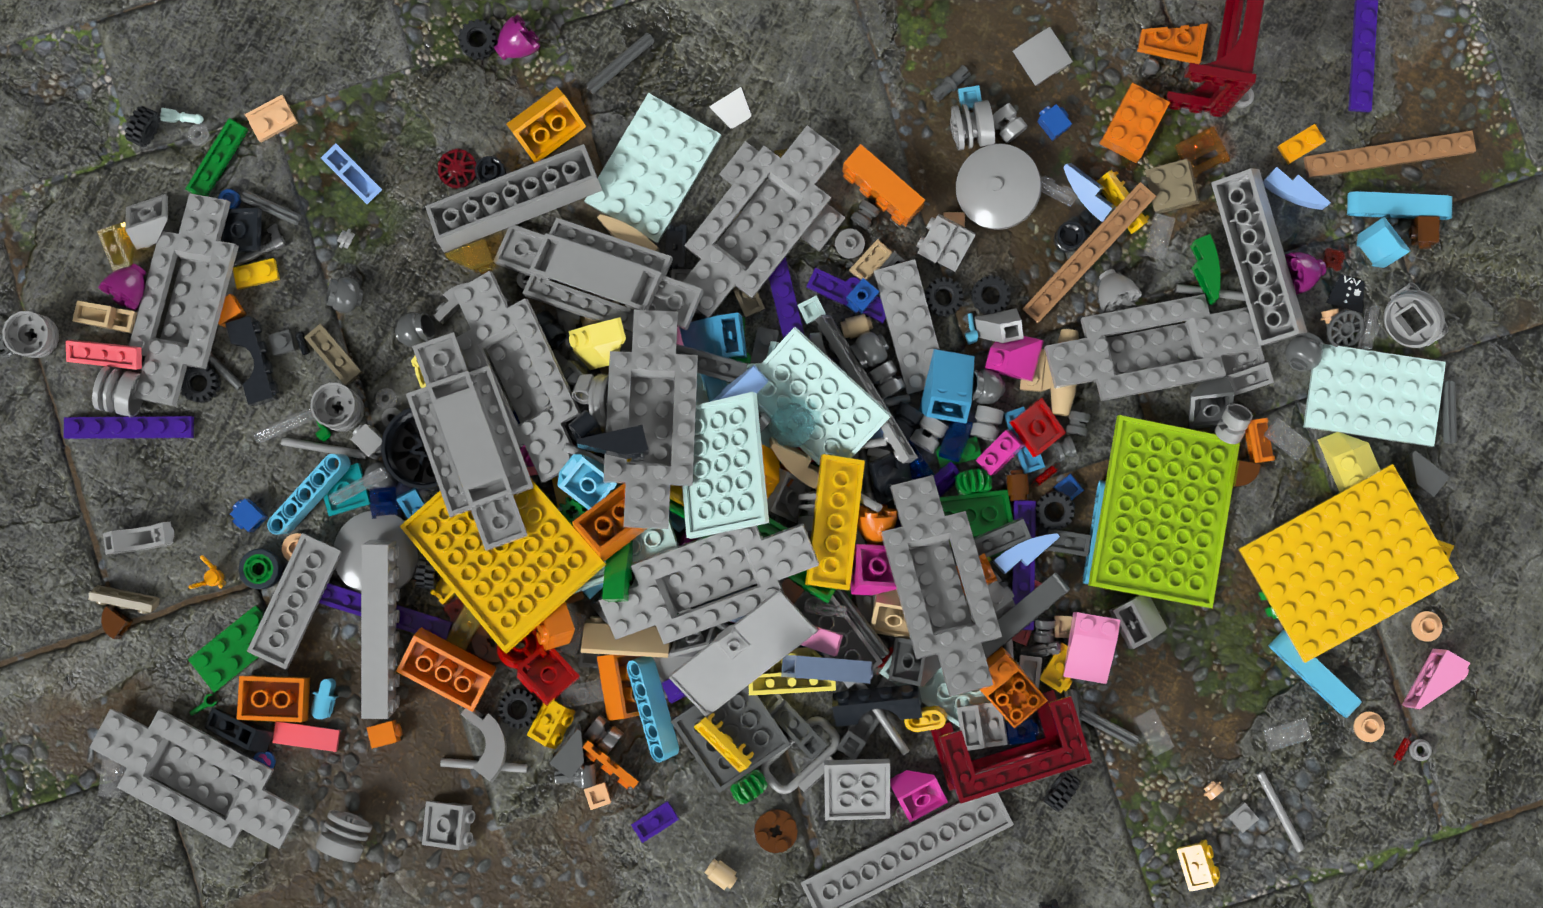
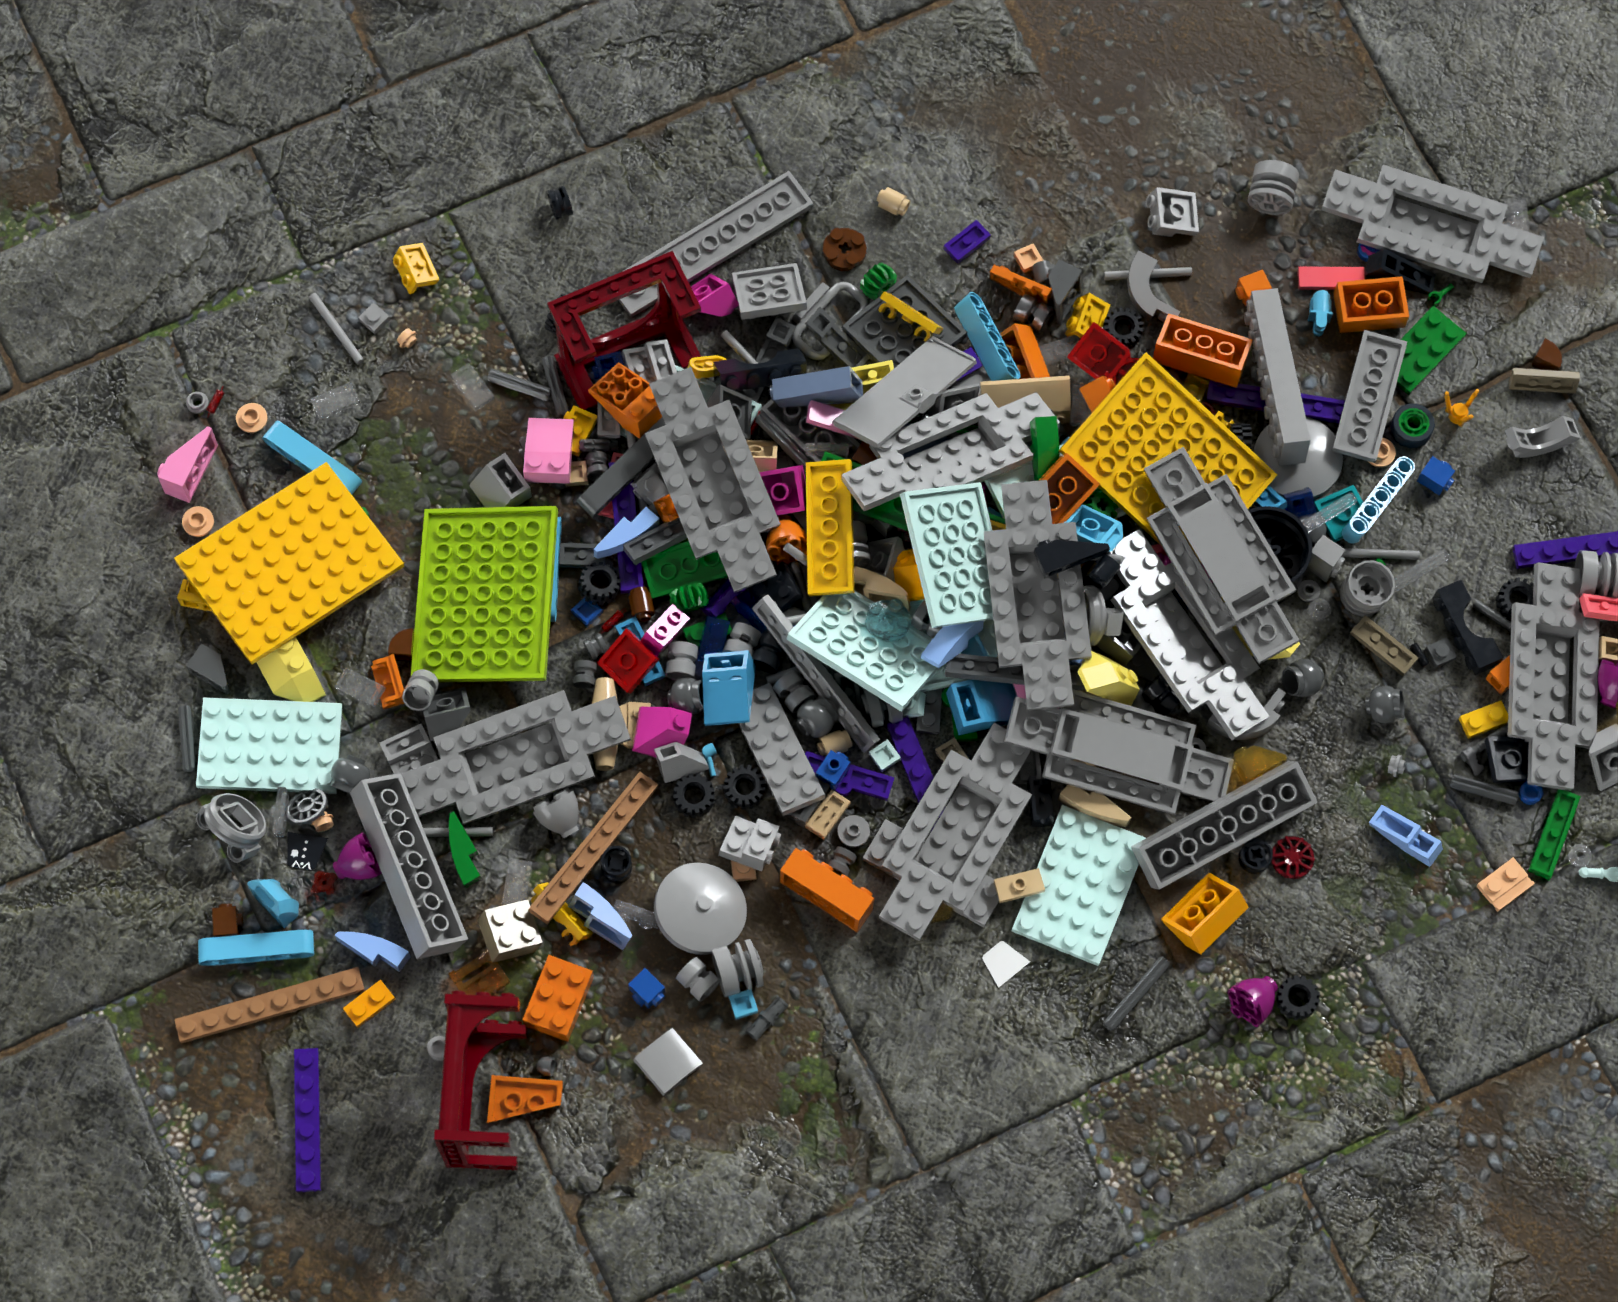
camera: 165 degrees right, 15 degrees down
(708, 168) = (1019, 885): none -> tan plate

